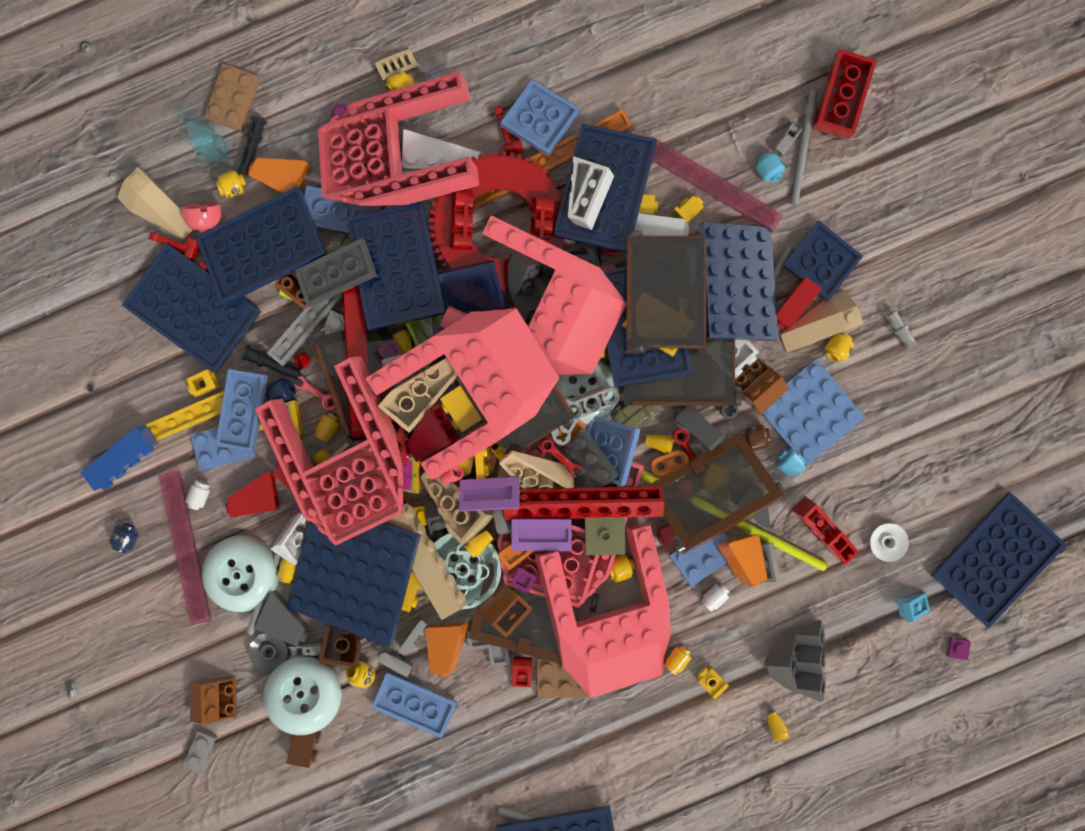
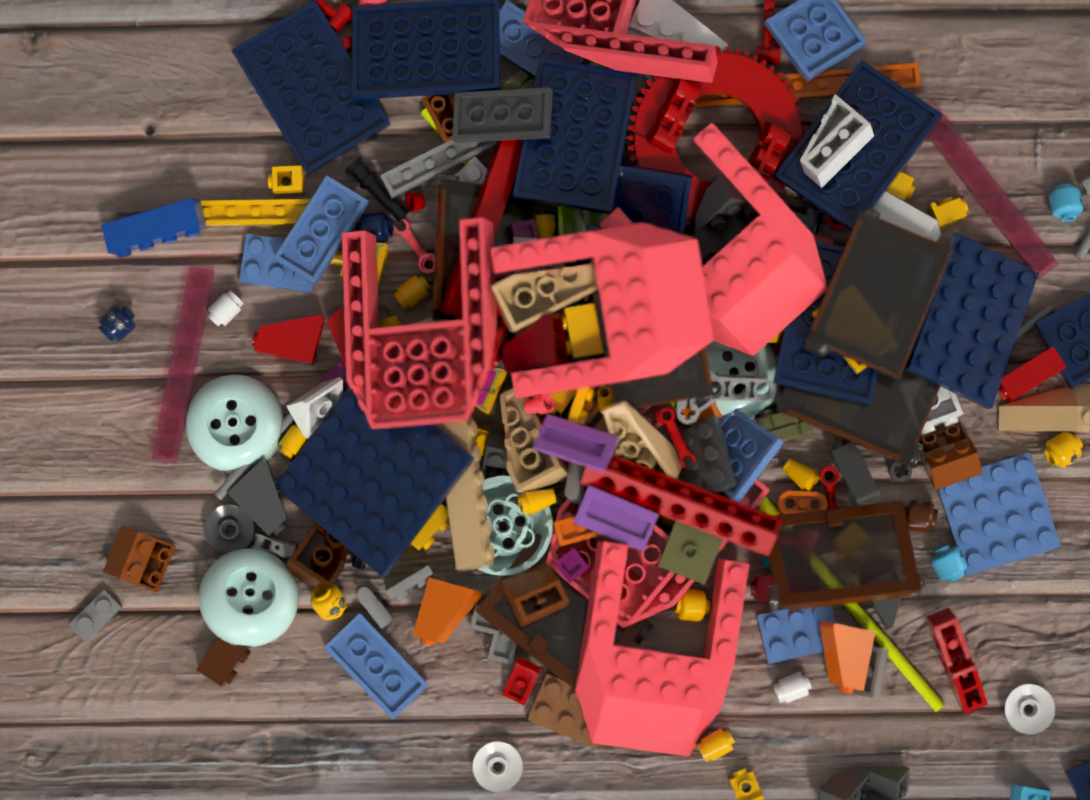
camera: 20 degrees right, 5 degrees down
(530, 749) = (497, 780): none -> white dish

